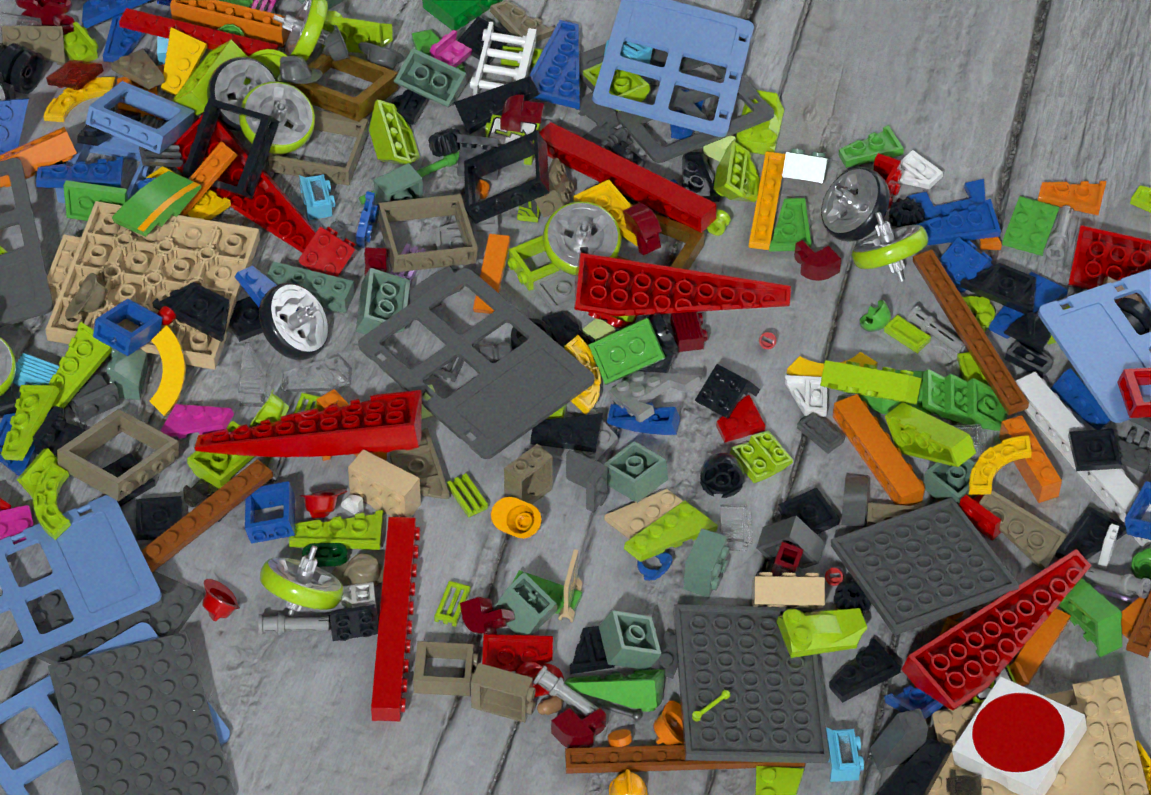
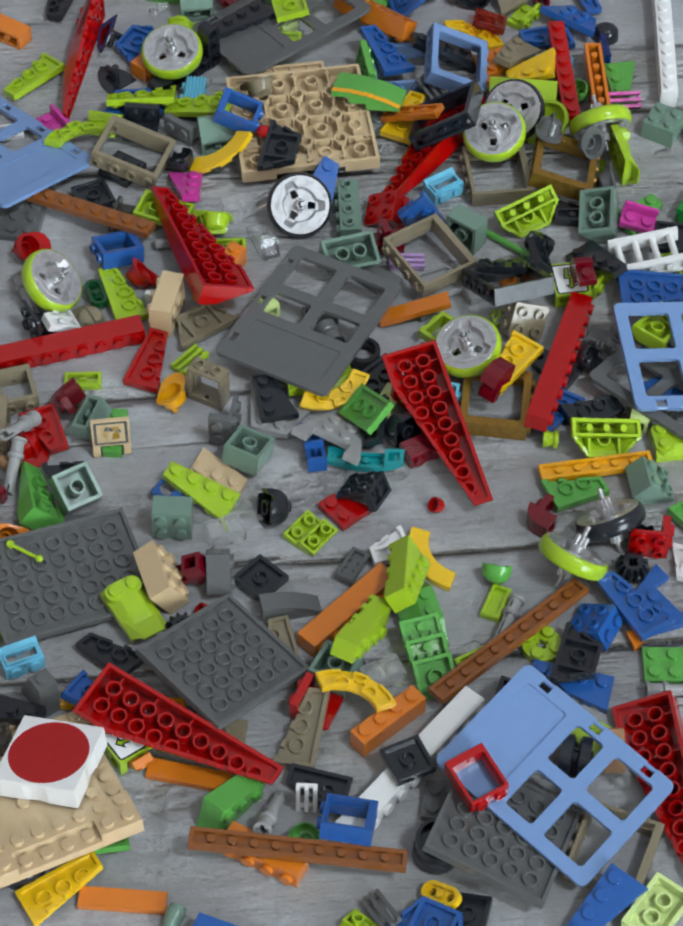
camera: 70 degrees right, 0 degrees up
(148, 411) = (181, 161): none -> black hair
(462, 537) = (148, 362): none -> red wing
(487, 173) = (501, 266): none -> black hinge
(518, 663) = (24, 423): none -> light grey pin
(691, 364) = (376, 462): none -> teal slope

